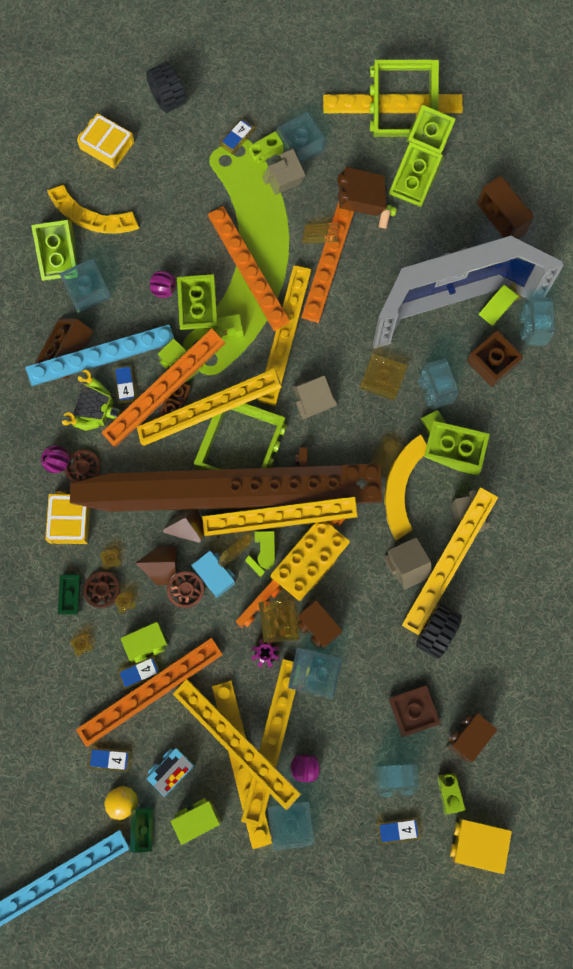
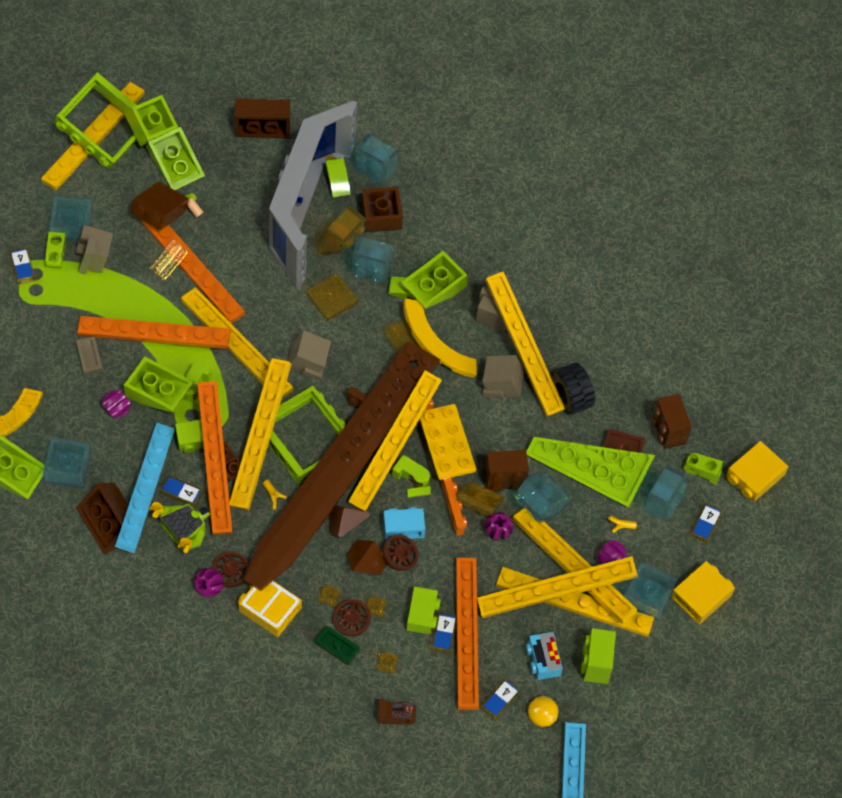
camera: 60 degrees left, 15 degrees down
(38, 681) = (396, 713): none -> reddish brown leg
(141, 830) = (574, 705): dark green plate -> none
(172, 454) = (274, 494): none -> yellow bar
(195, 236) = (89, 355): none -> dark tan tile
(235, 550) = (397, 492): clear yellow tile -> none
(326, 873) = (703, 592): none -> yellow brick
(344, 756) = (622, 524): none -> yellow bar
(381, 707) = (604, 469): none -> lime wing
(441, 342) = (342, 232): none -> clear yellow slope

